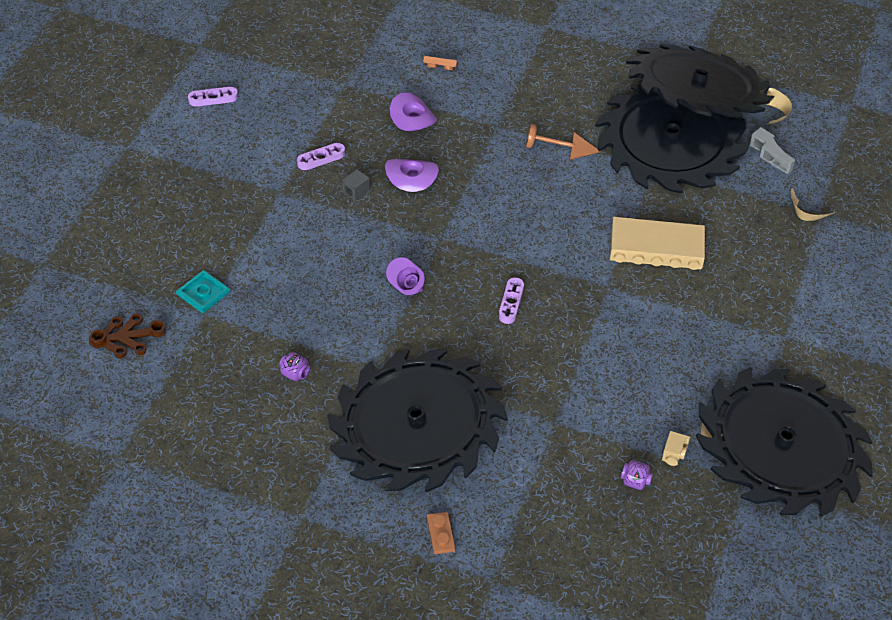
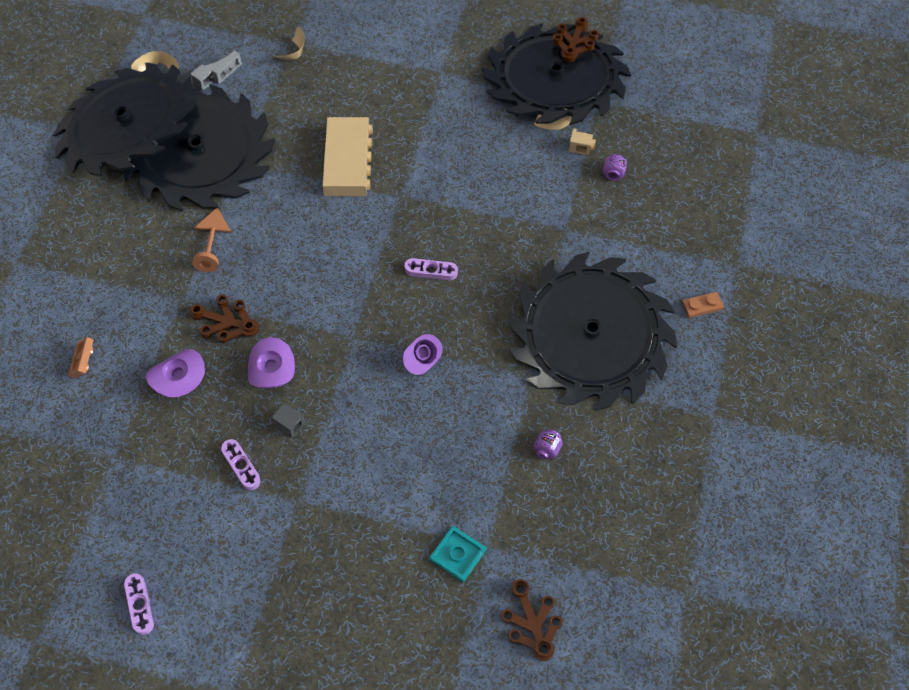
camera: 95 degrees left, 10 degrees up
(460, 165) = (225, 321): none -> reddish brown plant
(815, 453) = (570, 53): none -> reddish brown plant

